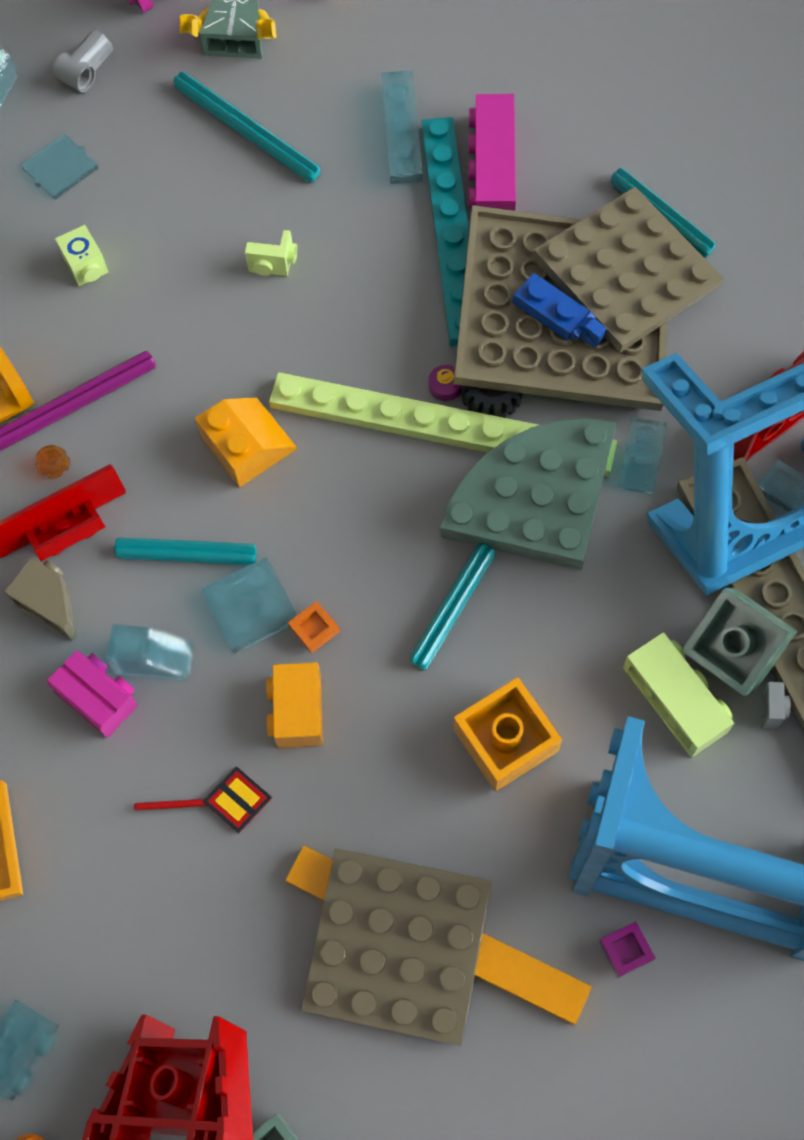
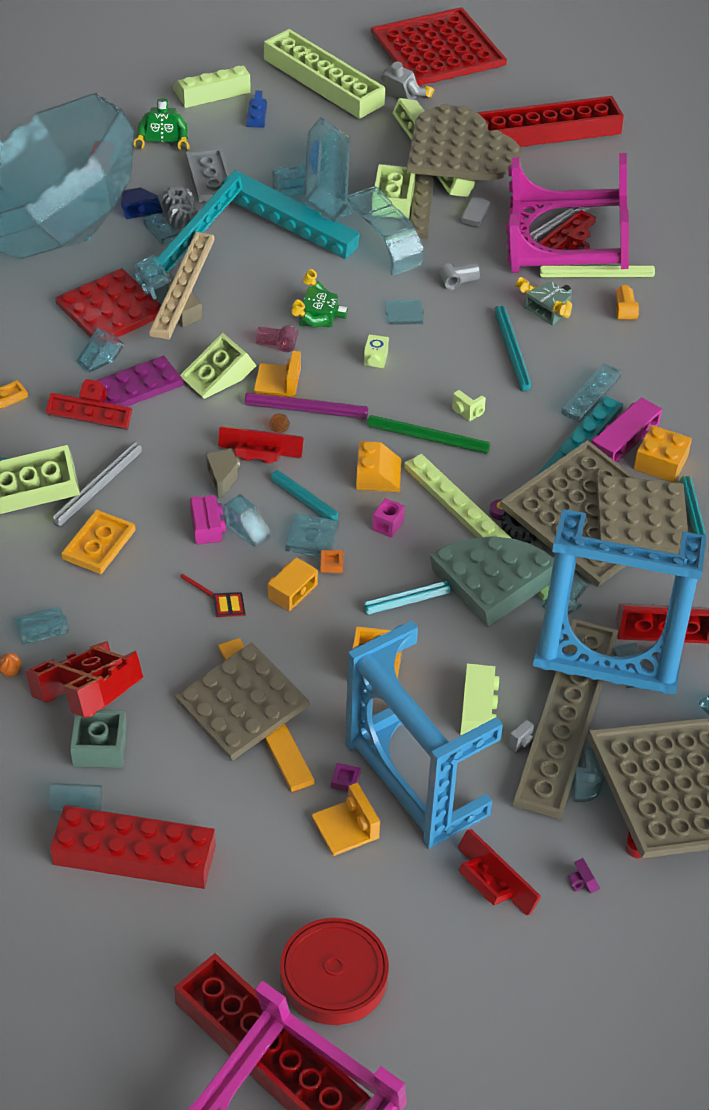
camera: 35 degrees right, 20 degrees down
(257, 335) = (428, 434): none -> green axle
(329, 516) = (388, 517): none -> dark pink brick
(558, 311) = (582, 501): blue hinge -> none
(565, 158) = (662, 453): none -> light orange brick
(691, 1019) = (348, 823): none -> light orange bracket
(739, 641) = (528, 692): sand green brick -> none

